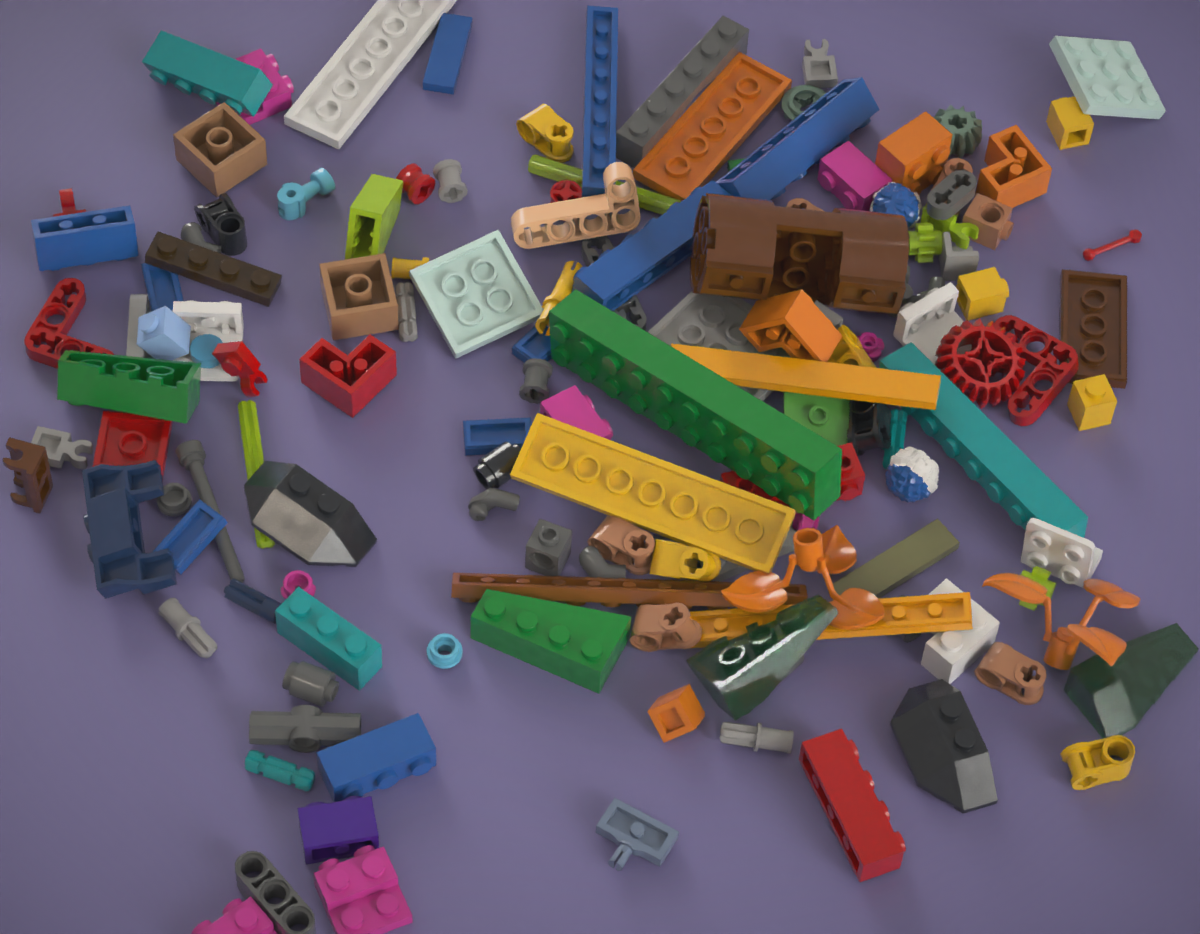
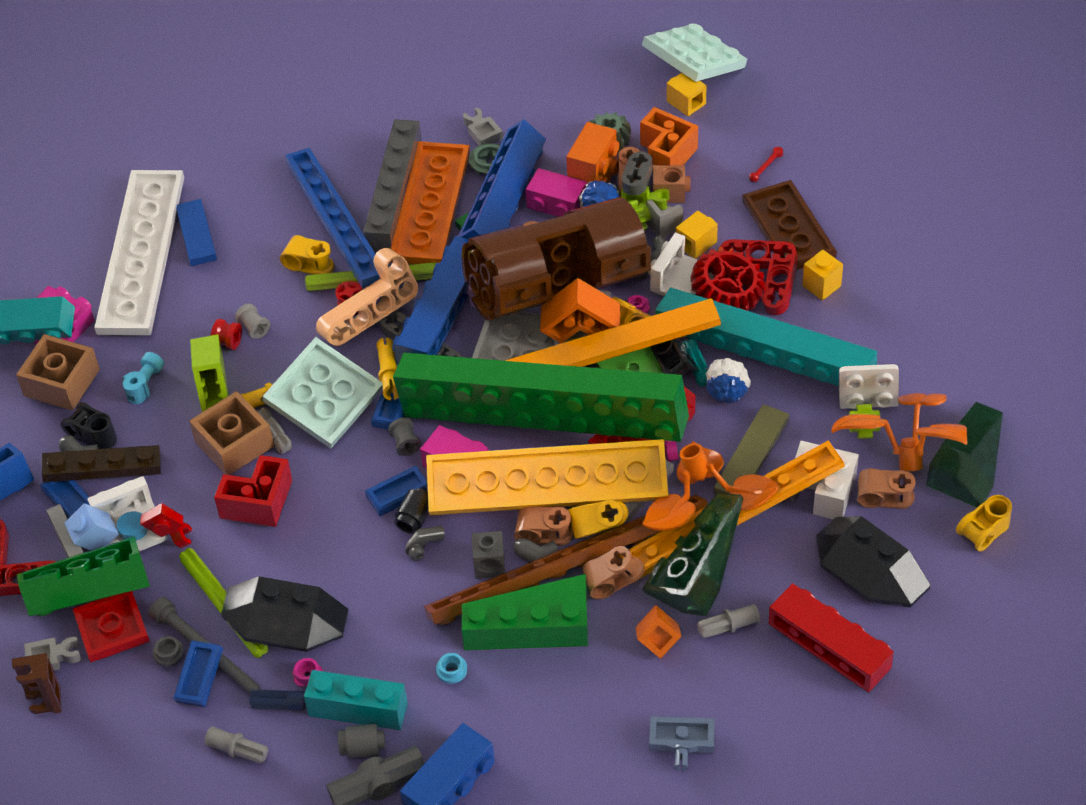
camera: 20 degrees left, 5 degrees down
(116, 529) = (137, 697): dark blue bracket -> none

